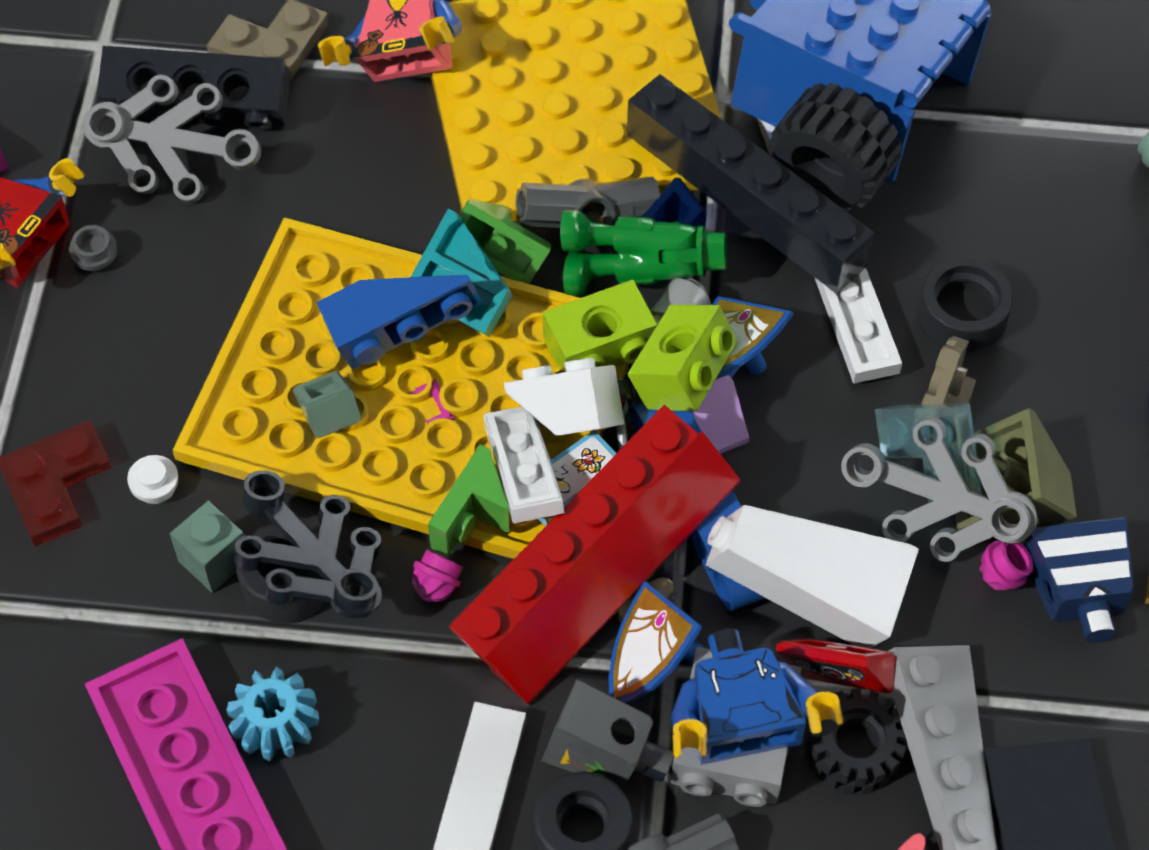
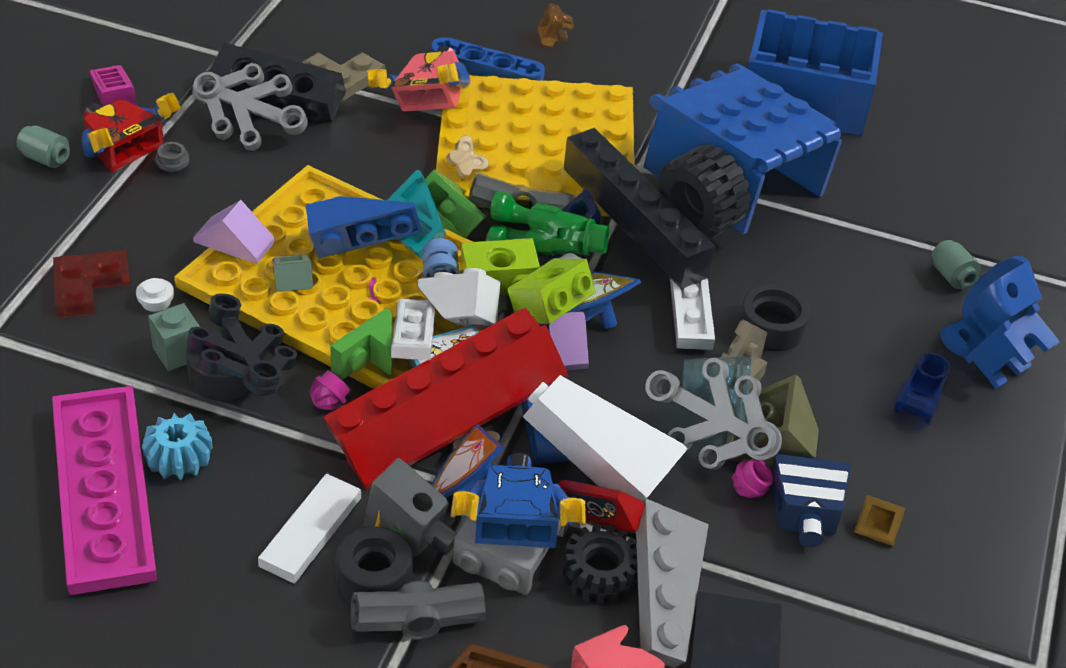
camera: 10 degrees right, 15 degrees down
(231, 364) = (236, 233): none -> lavender slope
(496, 158) = (465, 159): none -> tan piece
(519, 340) = (439, 256): none -> medium blue wheel

